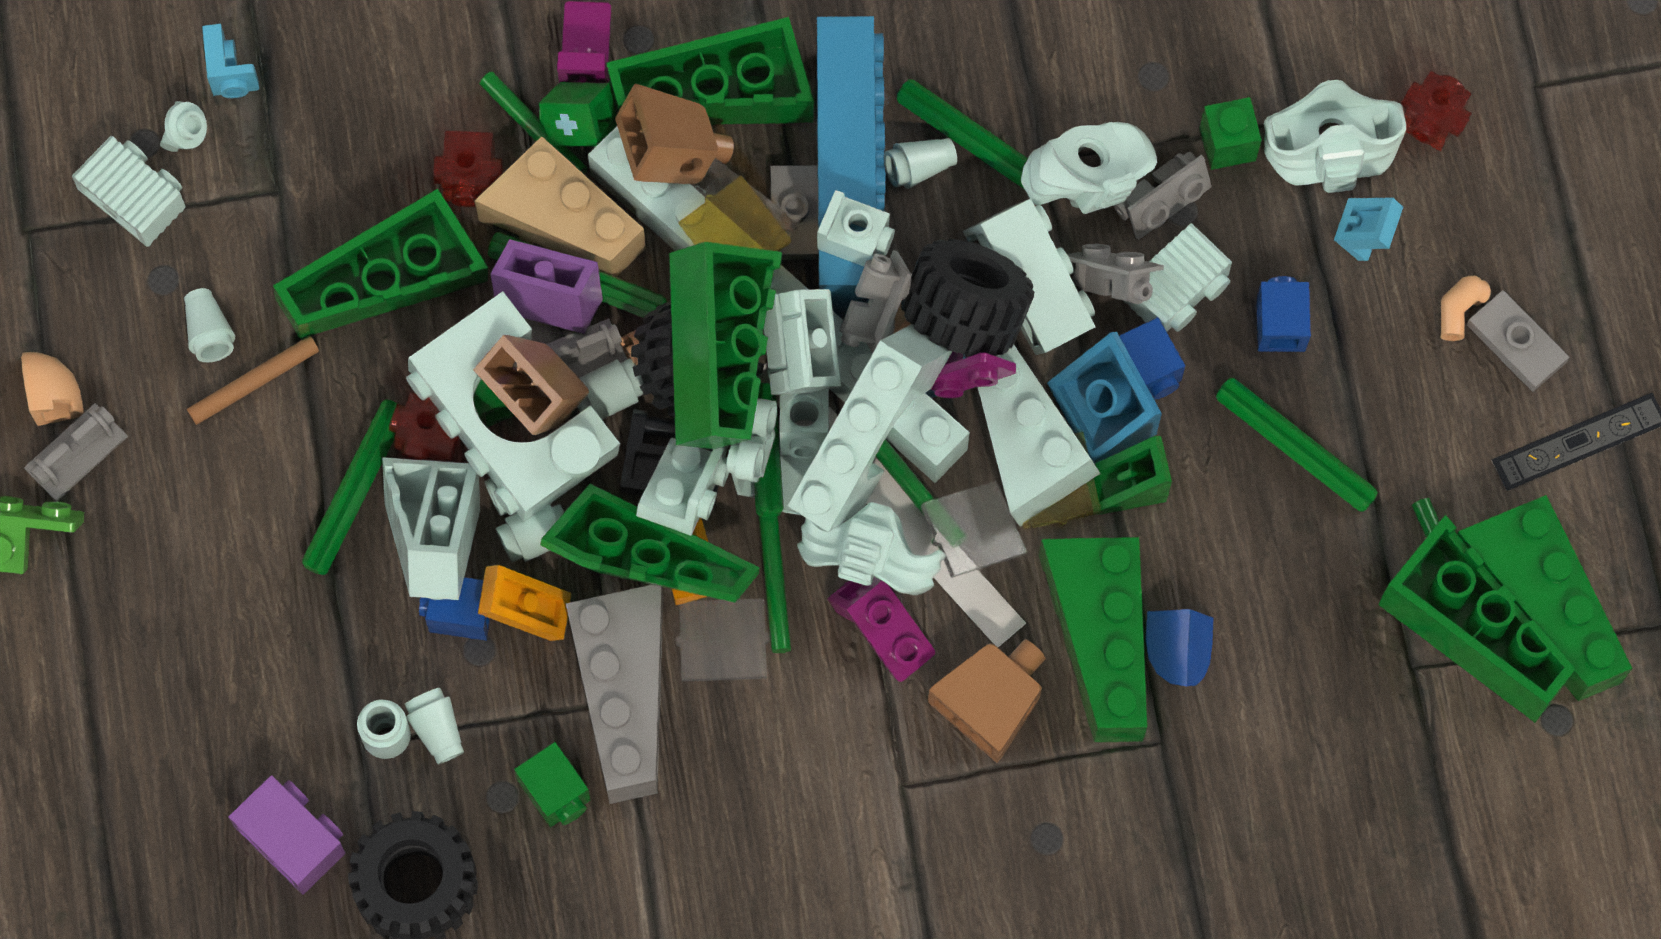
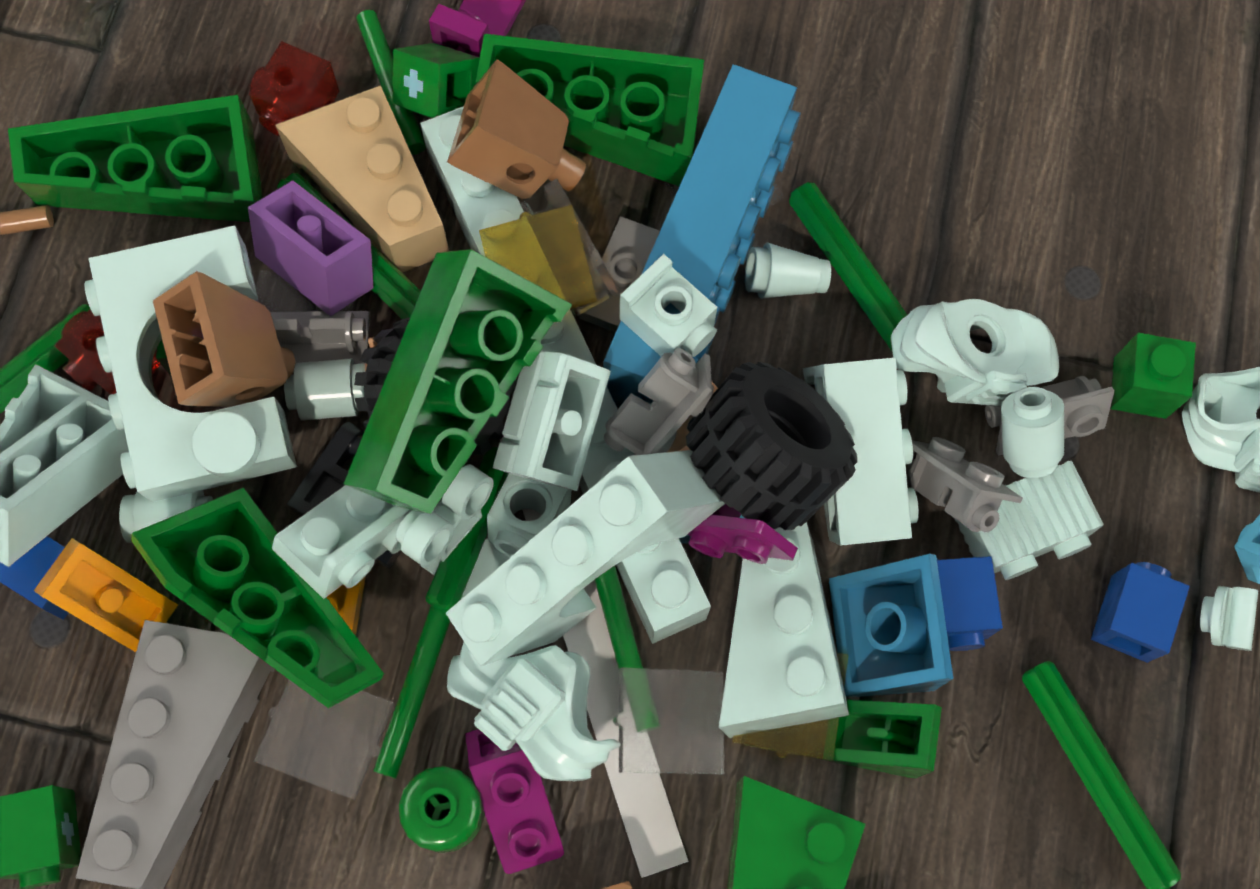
camera: 20 degrees right, 0 degrees up
(837, 666) = (458, 826): none -> green head
(1153, 213) = (1033, 431): none -> light aqua brick
(1350, 293) = (1230, 617): none -> light aqua plate

